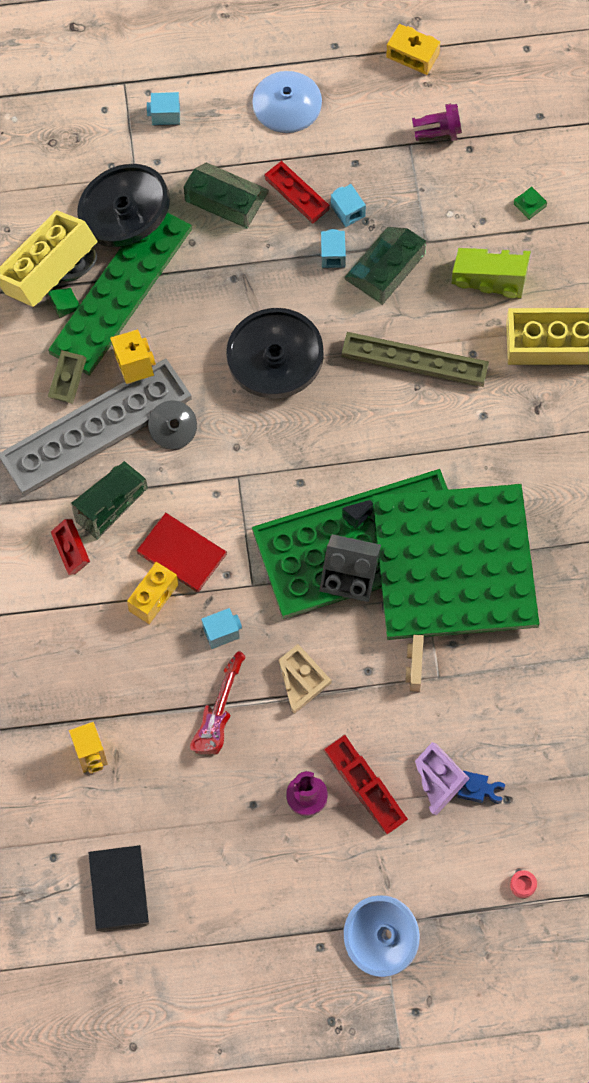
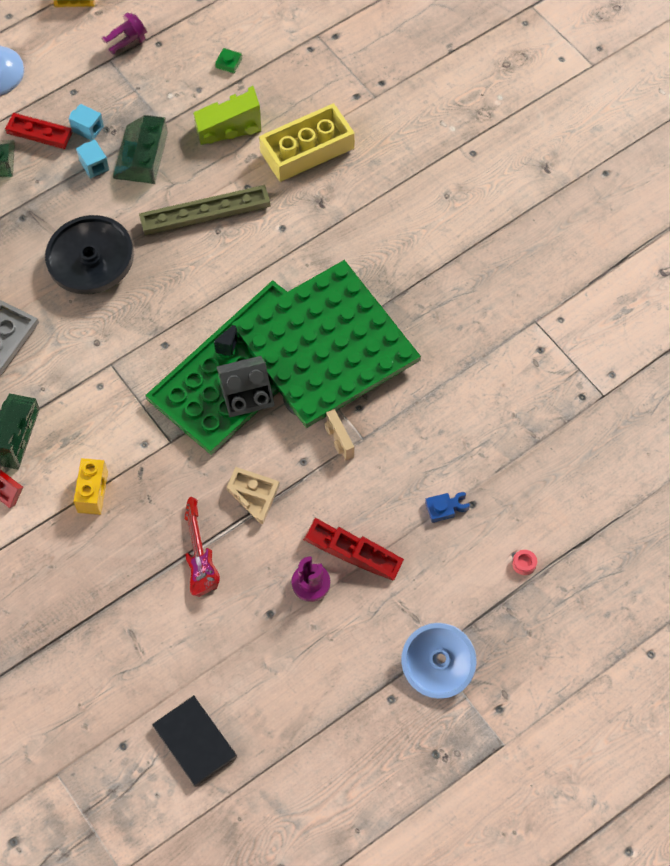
camera: 30 degrees left, 5 degrees down
(88, 748) = (106, 636): yellow brick -> none
(160, 426) = (32, 358): dark grey dish -> none
(182, 552) = (97, 441): red tile -> none
(221, 628) = (164, 486): medium azure brick -> none
(439, 777) = (410, 512): lavender wing -> none

